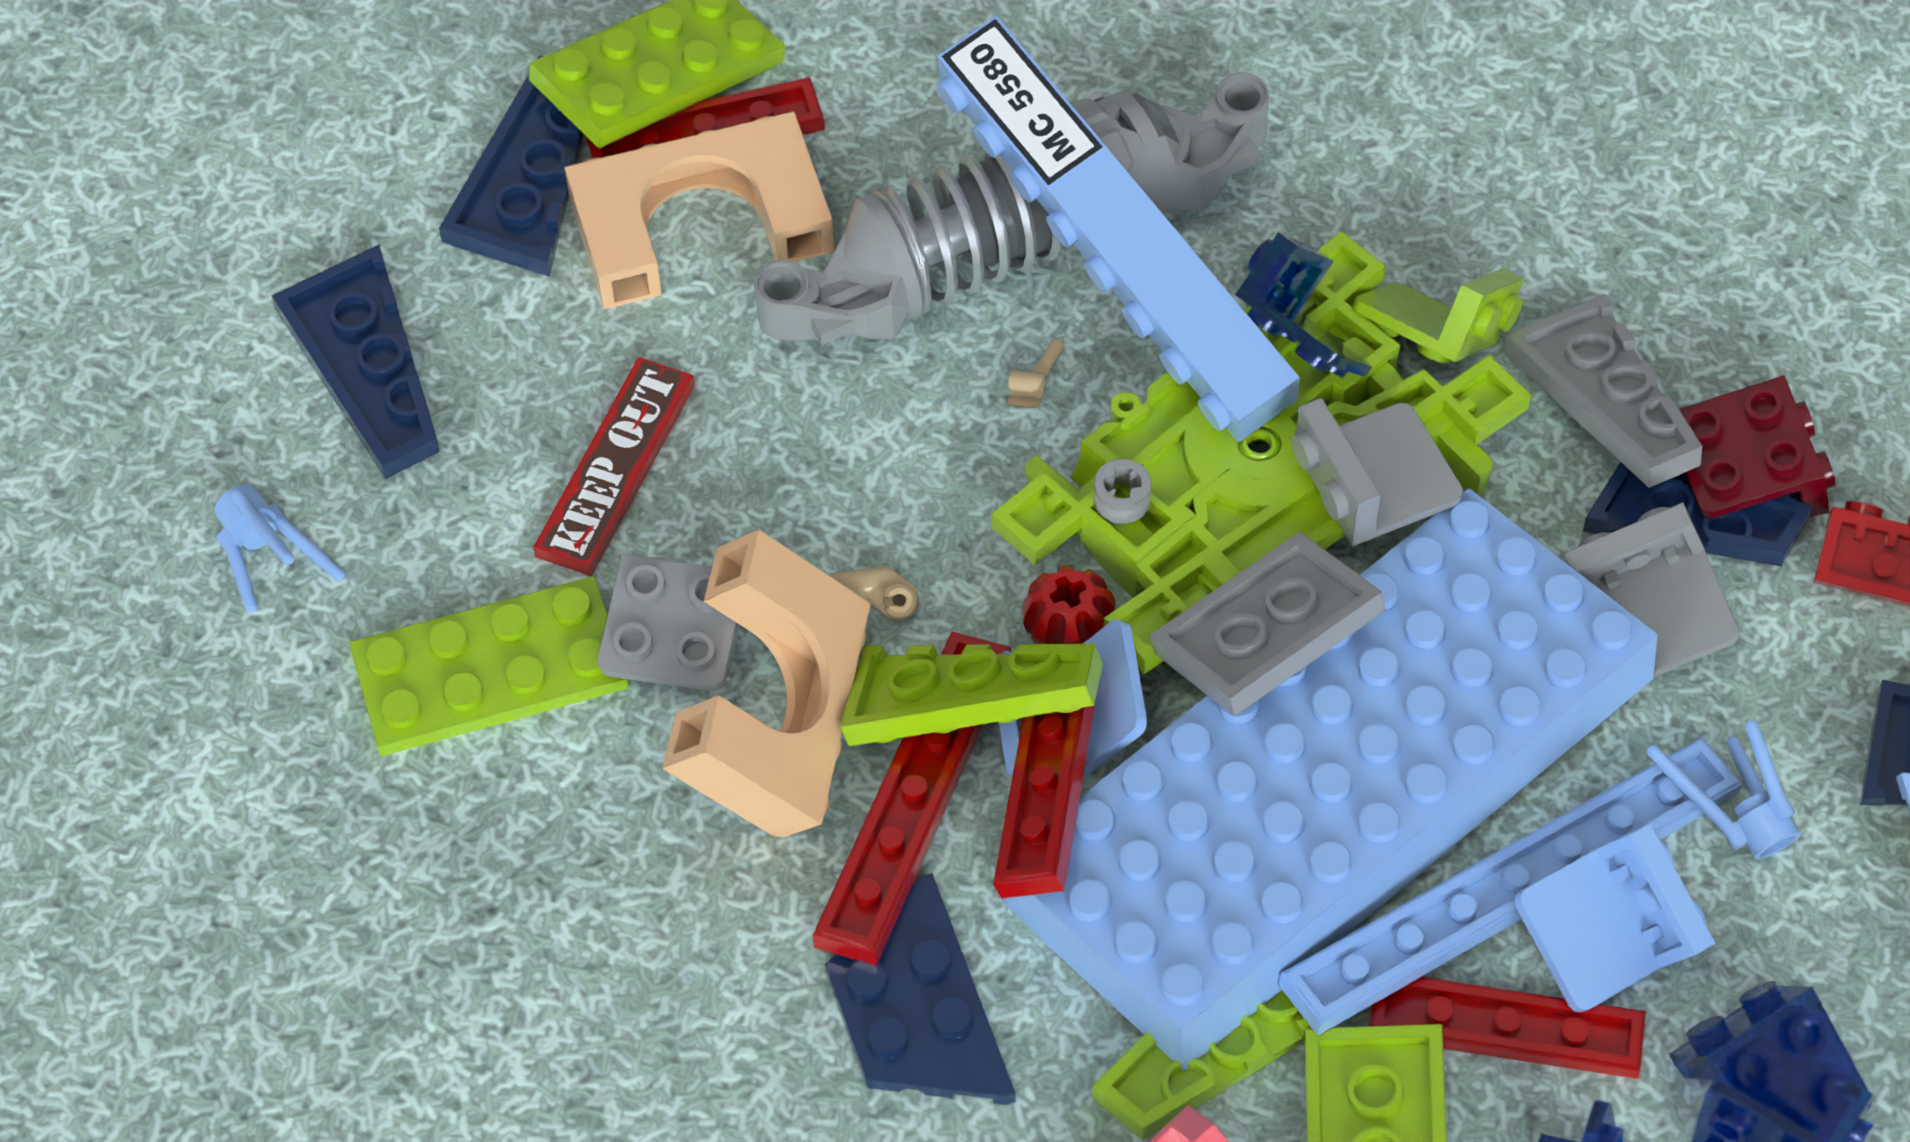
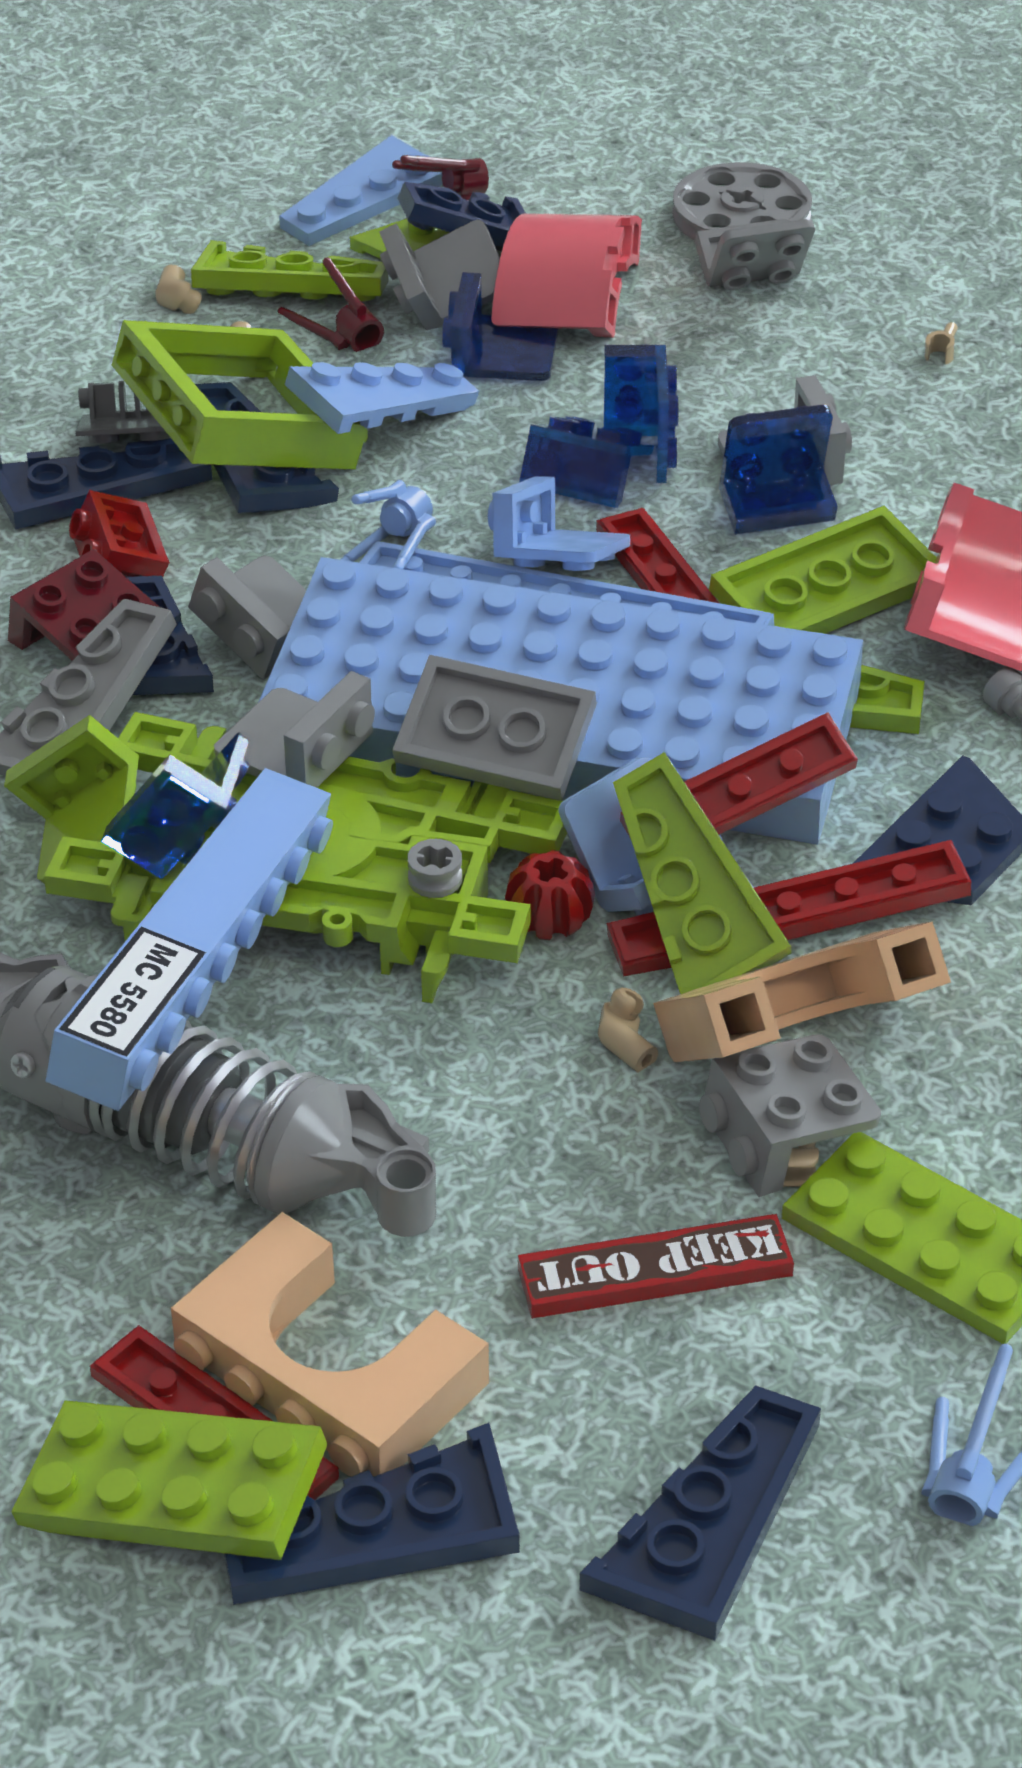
camera: 125 degrees left, 15 degrees down
(1033, 382) = (330, 1036): tan hand -> none

